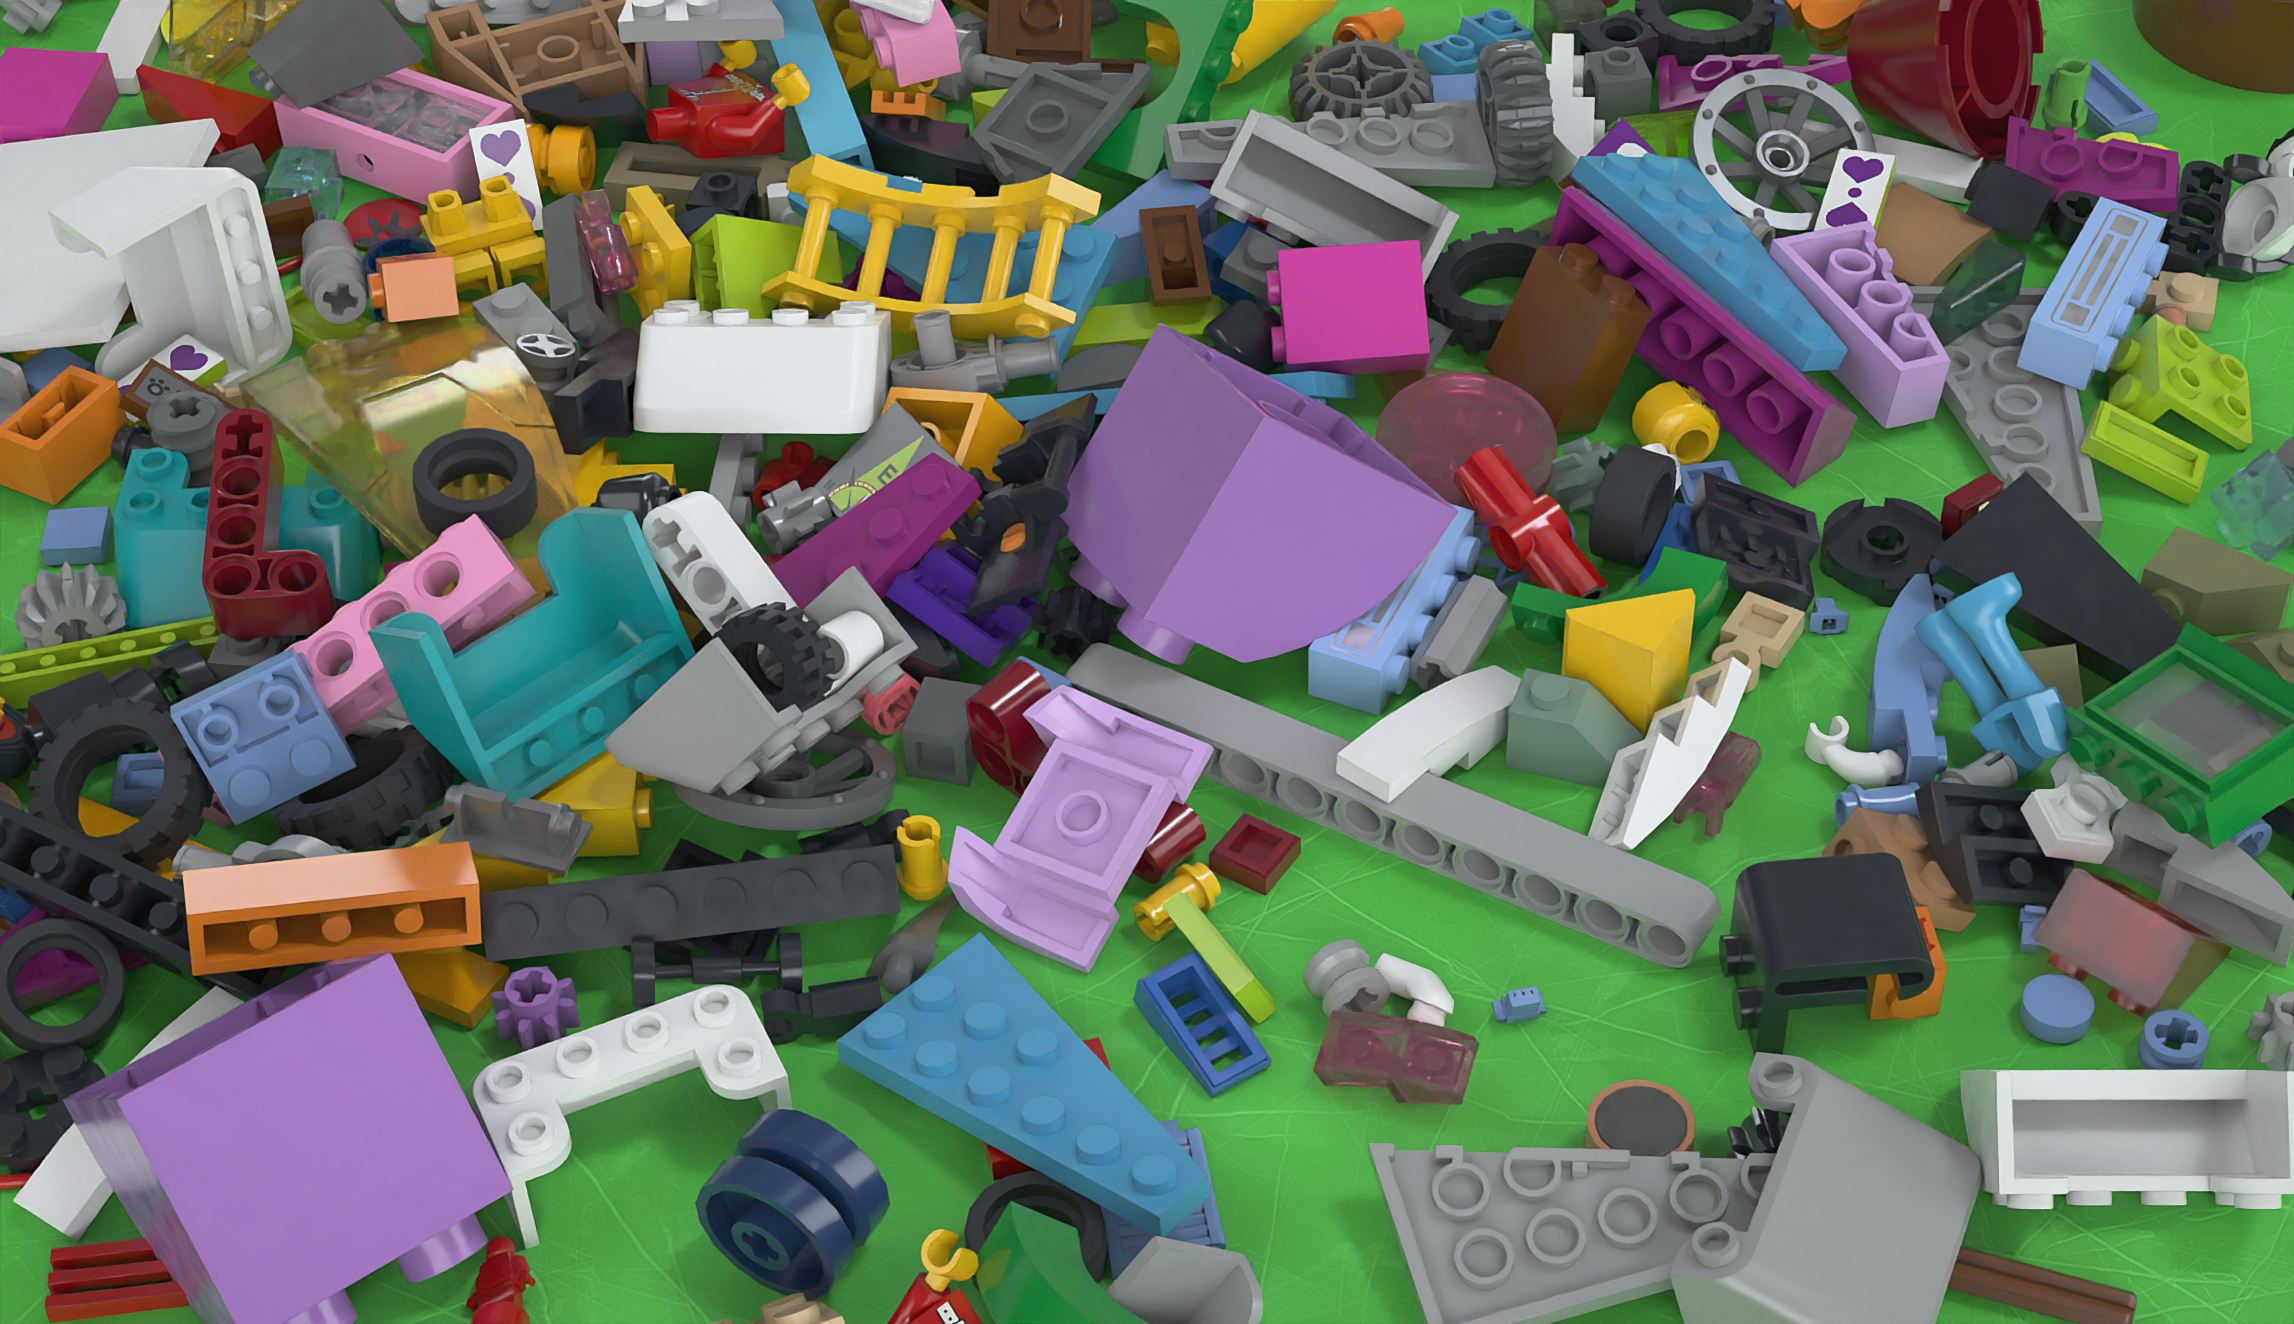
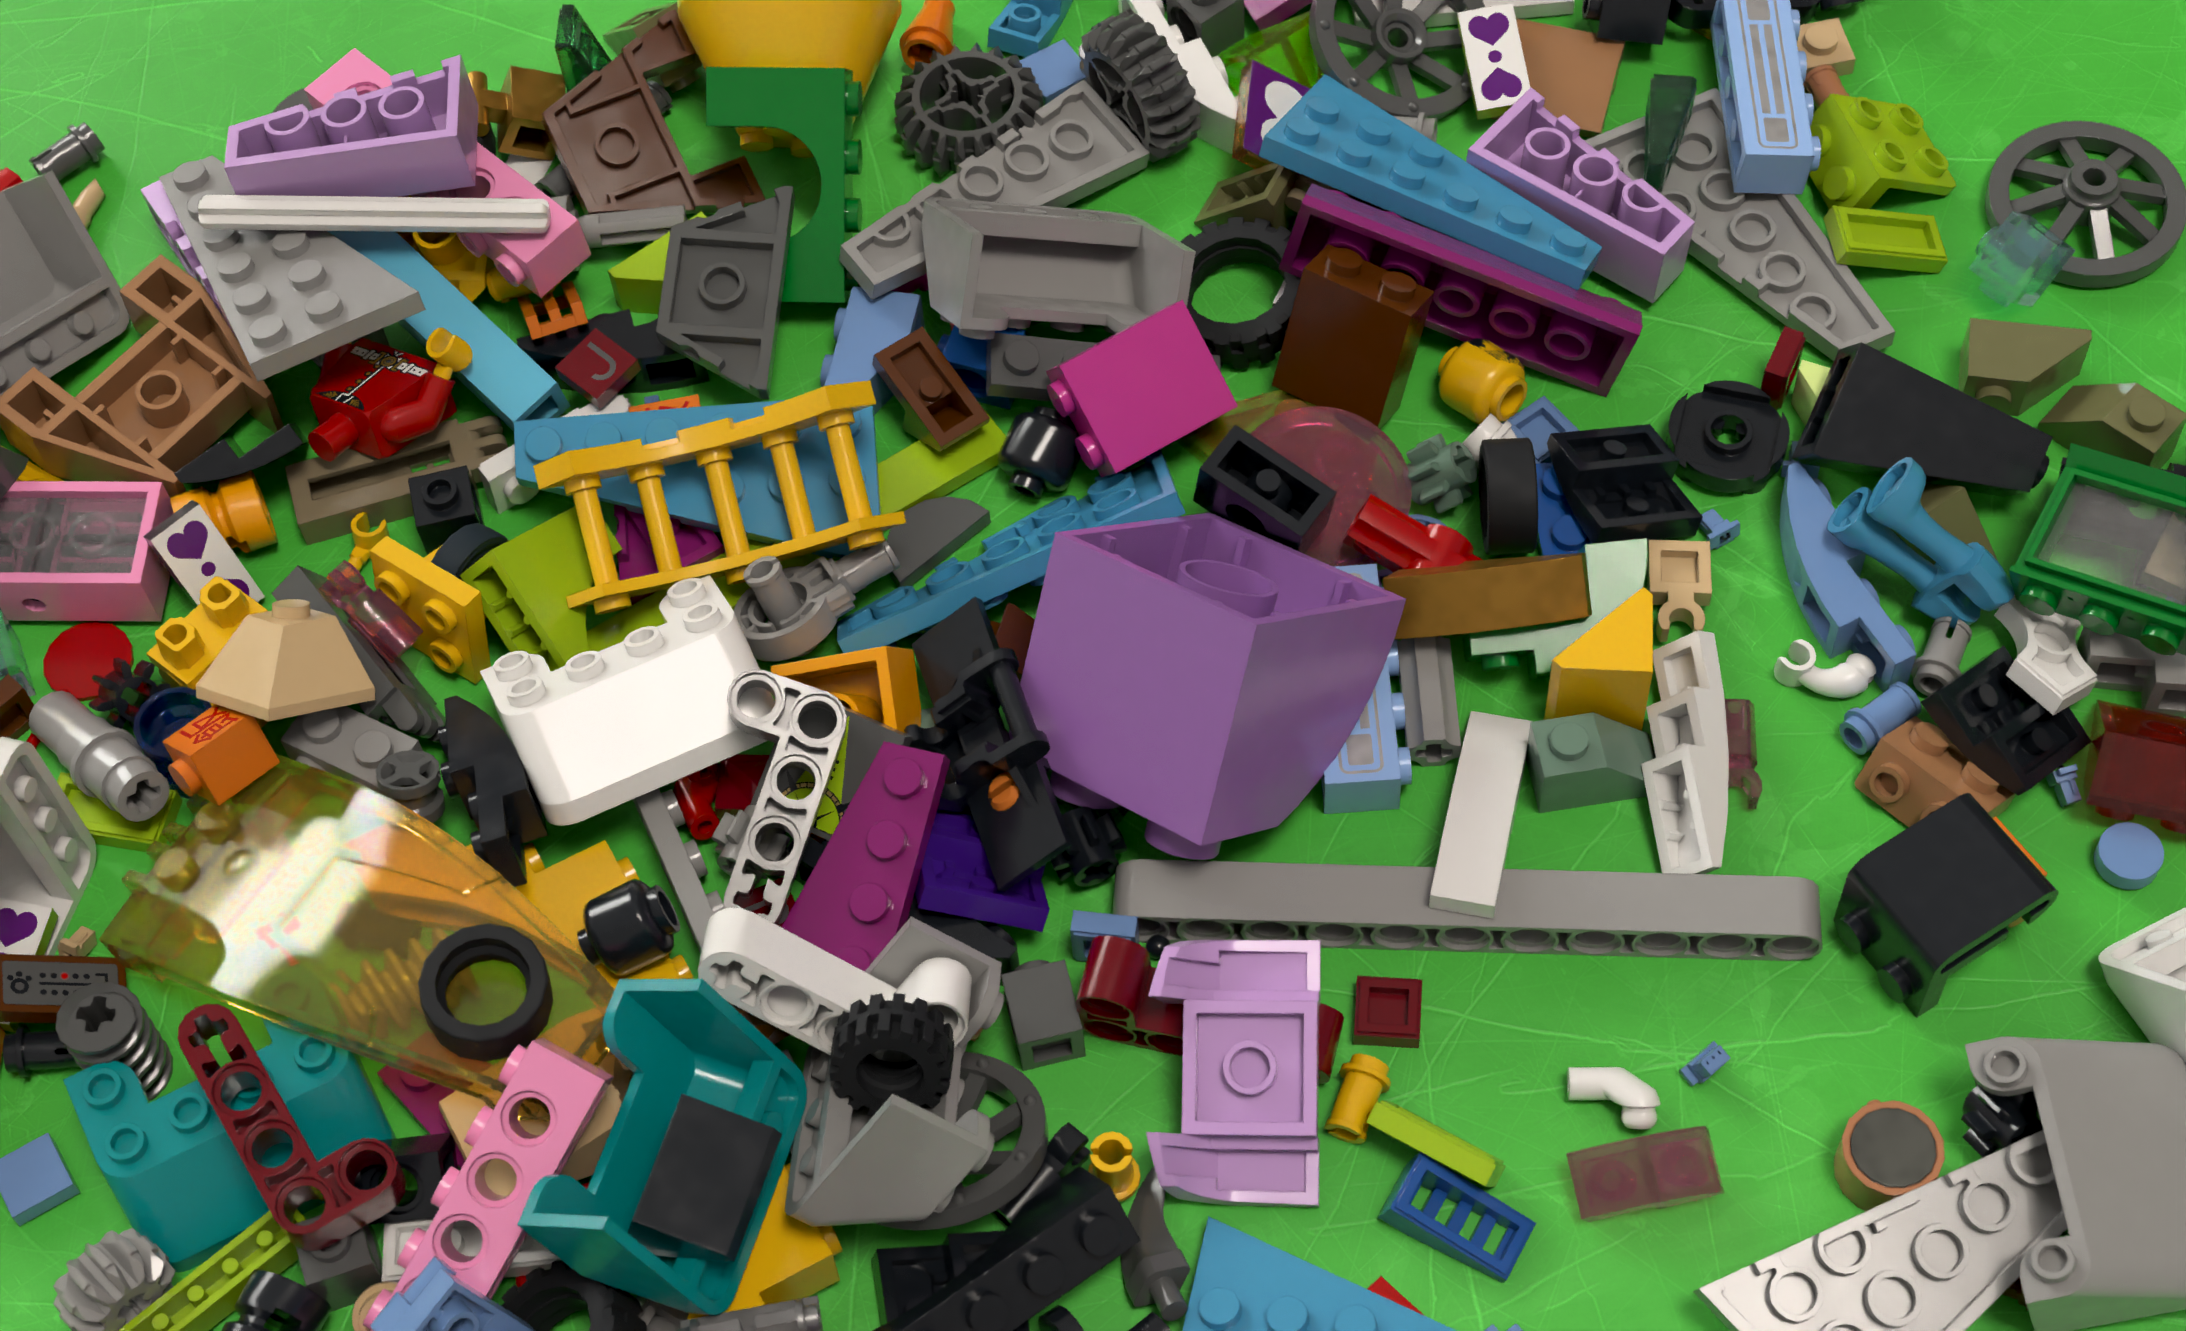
camera: 25 degrees left, 15 degrees up
(510, 241) = (286, 665): none -> tan slope
(539, 675) = (704, 1183): none -> black slope
(810, 470) = (773, 808): none -> light grey beam
(910, 149) = (598, 368): none -> dark red tile
(1345, 980) = (1558, 1117): light grey wheel -> none
(1397, 405) = (1263, 491): none -> black brick
(1547, 553) = (1491, 594): none -> pearl gold slope

